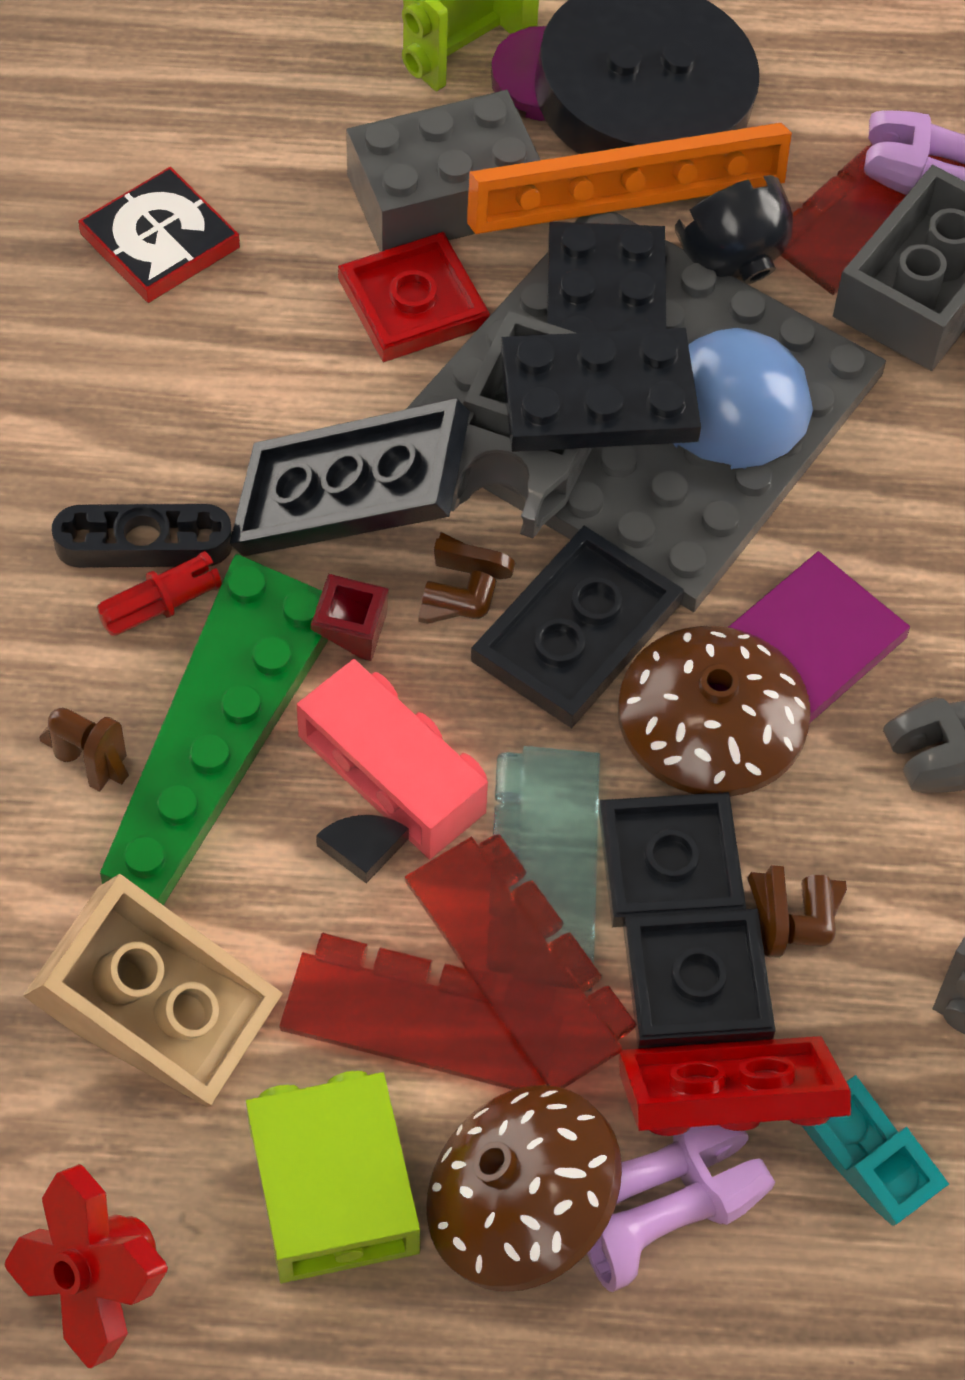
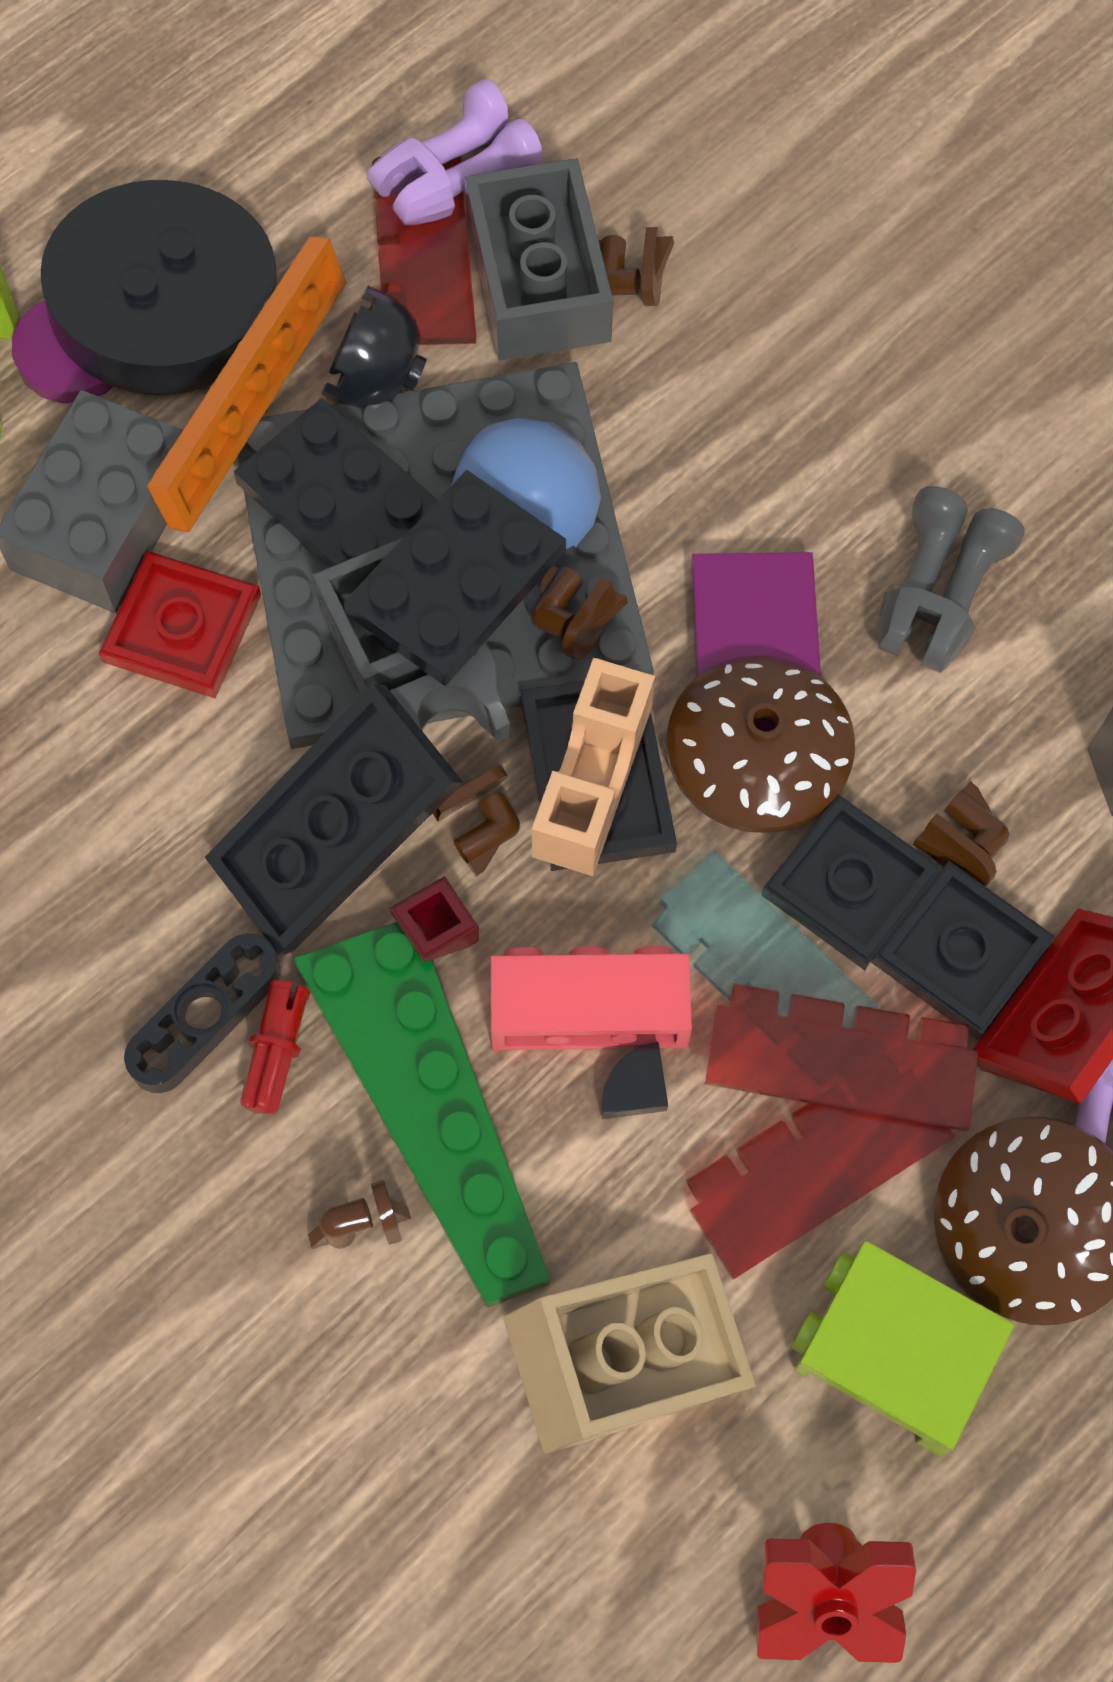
camera: 45 degrees left, 10 degrees up
(604, 589) = (596, 765): none -> light nougat arch
(678, 506) = (579, 629): none -> reddish brown piece

